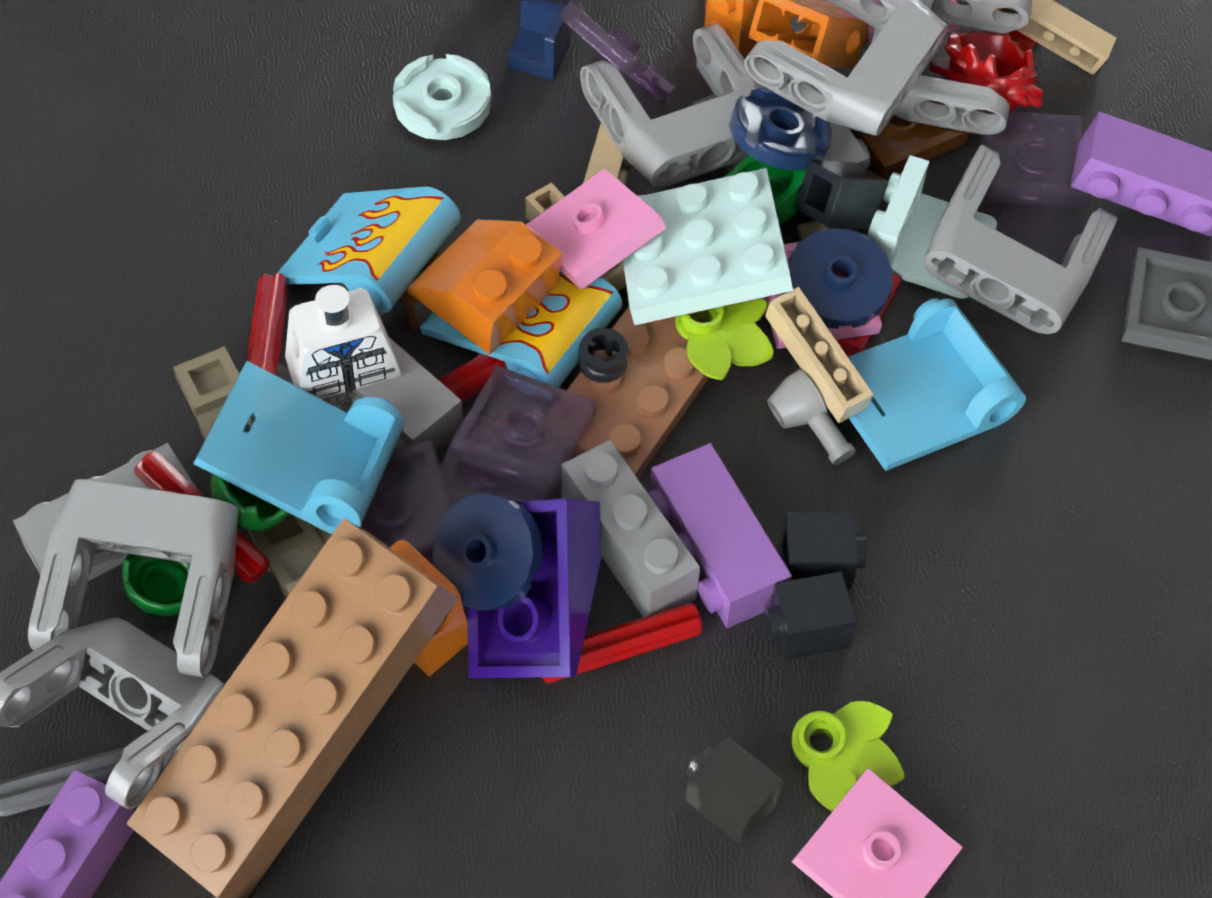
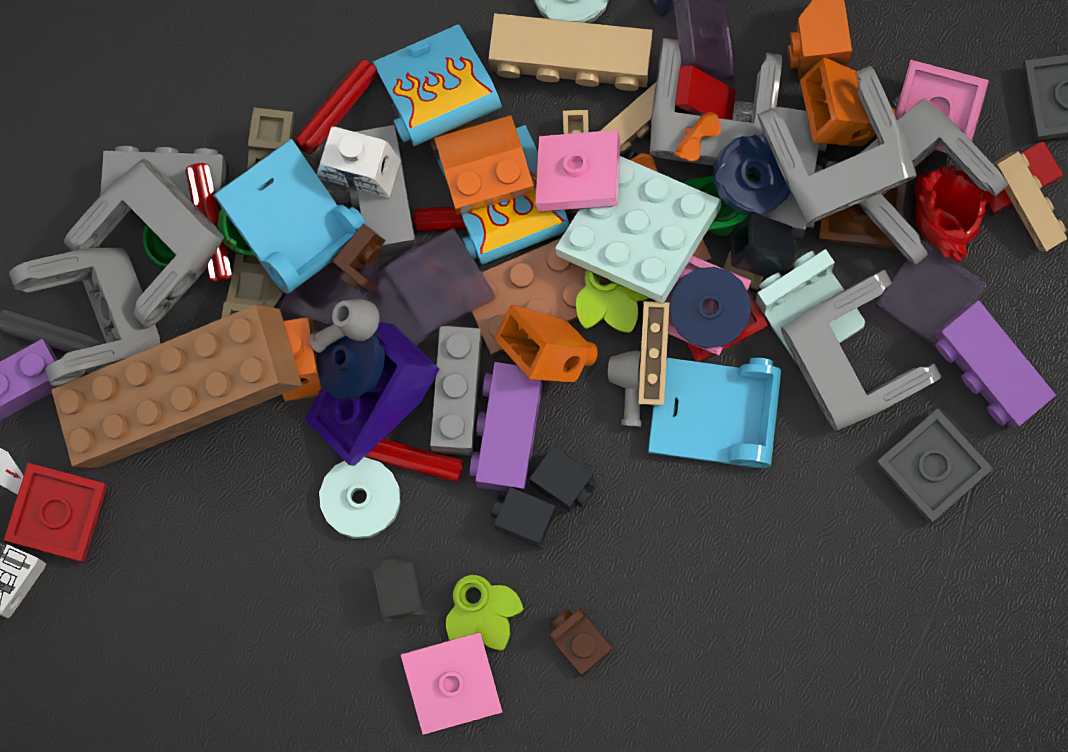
camera: 45 degrees right, 20 degrees up
(414, 445) = (358, 253): none -> reddish brown bracket
(474, 501) = (351, 318): none -> light grey bar
(492, 138) = (570, 51): none -> tan brick
(596, 747) = (374, 513): none -> light aqua plate
(613, 344) = (513, 267): black bush -> none
(653, 93) = (702, 94): none -> red tile
(694, 133) = (690, 146): none -> orange piece
(710, 415) = (544, 345): none -> orange torso
(979, 712) = (579, 640): none -> reddish brown bracket

